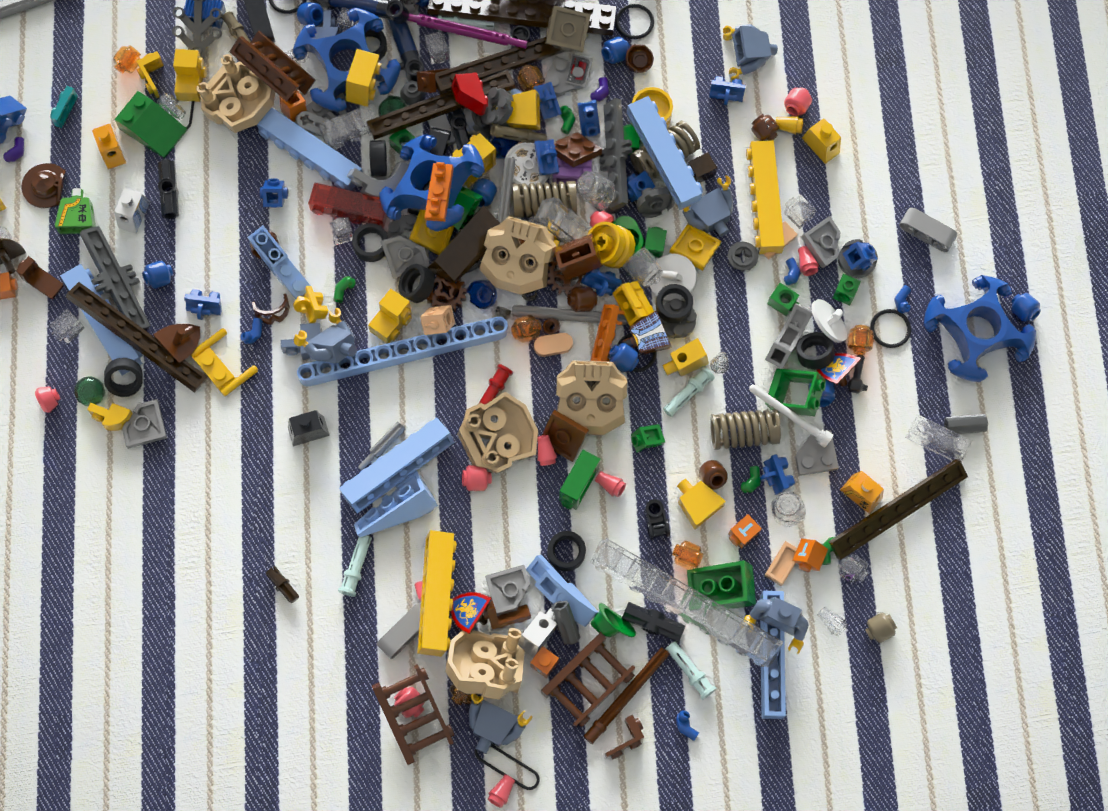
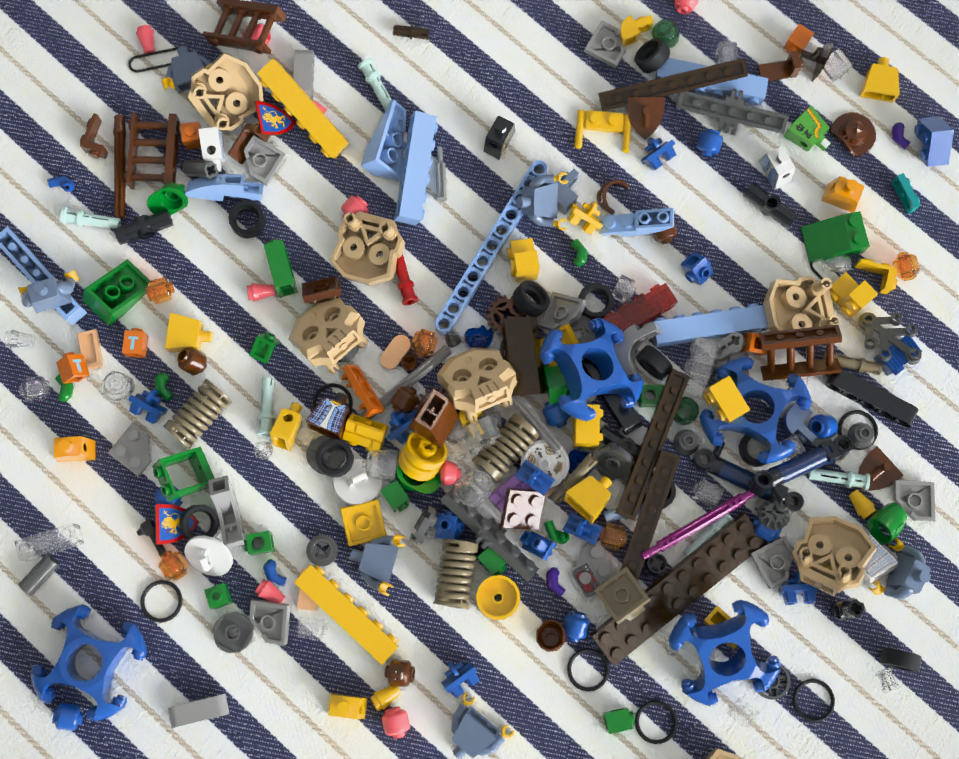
camera: 135 degrees right, 5 degrees up
(255, 333) = (603, 167): blue arm -> none
(426, 80) = (686, 453): reddish brown bracket -> none
(437, 320) = (488, 285): light nougat head -> none
(439, 192) = (572, 354): orange plate -> none
(469, 92) = (639, 466): red slope -> none
(501, 99) = (610, 478): dark grey plate -> none
(546, 452) = (324, 269): coral cone -> none
(624, 357) = (333, 383): blue head -> none
(656, 523) = (203, 293): black piece -> none
(664, 153) = (447, 559): light blue brick -> none
(686, 602) = (125, 250): clear brick -> none
(703, 167) = (417, 589): dark brown brick -> none
(823, 437) = (134, 459): white piece -> none
(860, 256) = (227, 627): blue brick -> none
(898, 509) = (35, 461): dark brown plate -> none
(900, 300) = (171, 630): blue arm -> none

